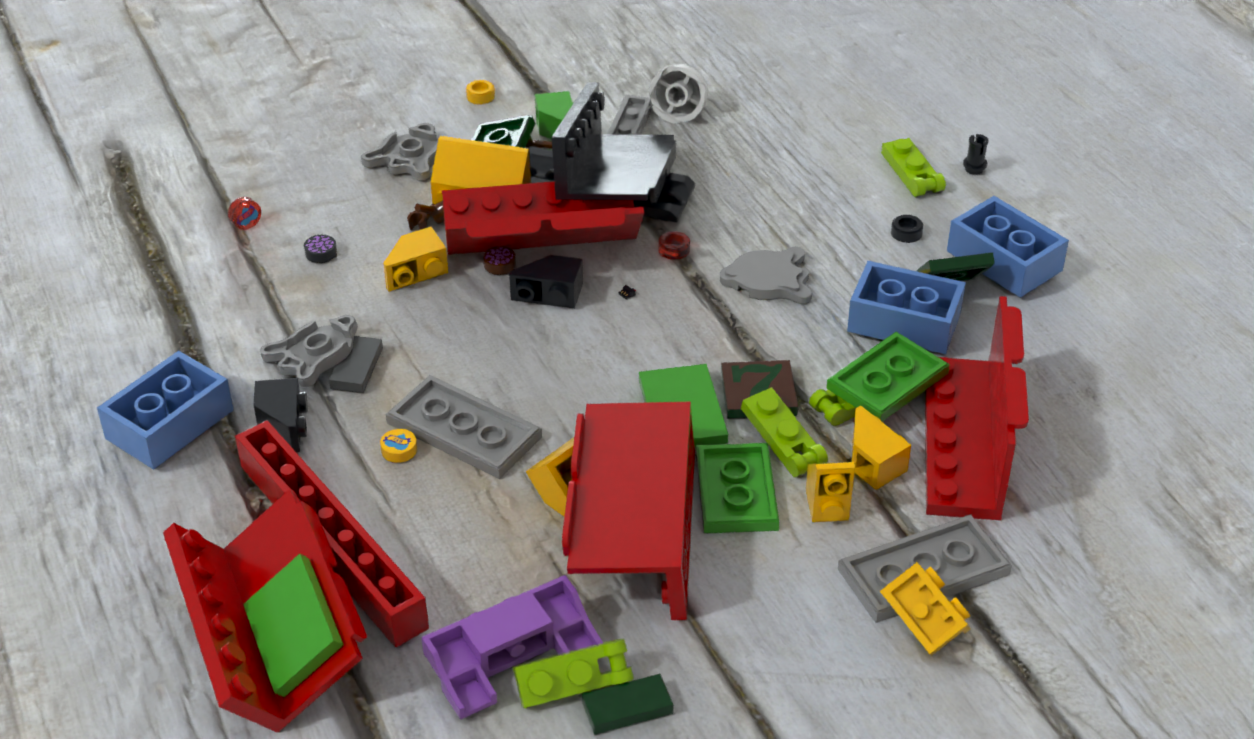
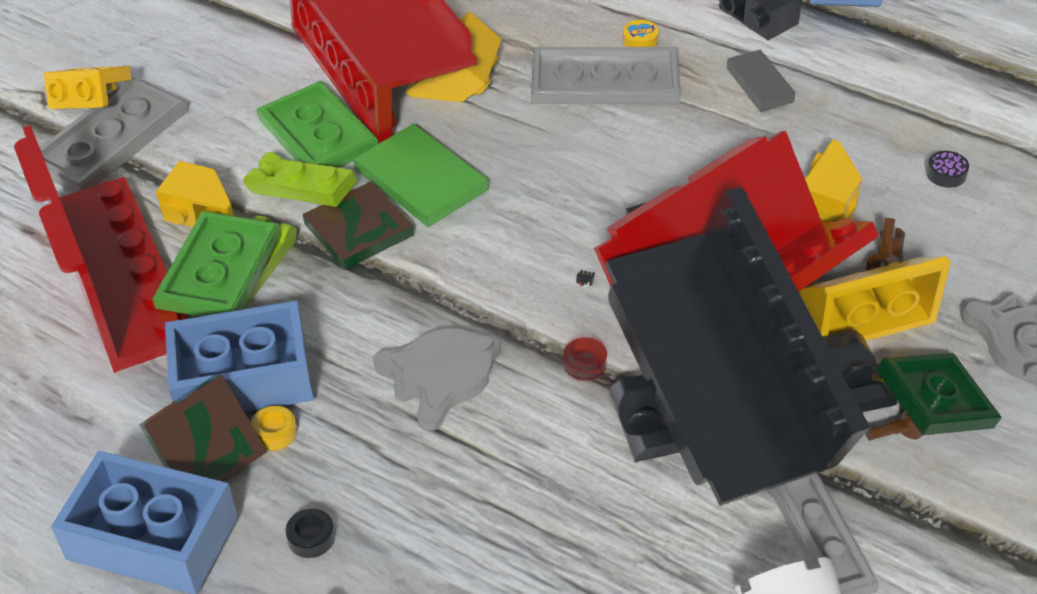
camera: 150 degrees right, 5 degrees up
(312, 349) = (807, 66): light grey tile -> none
(551, 110) = (910, 470): bright green slope -> none
(830, 491) = (218, 128): yellow slope -> none

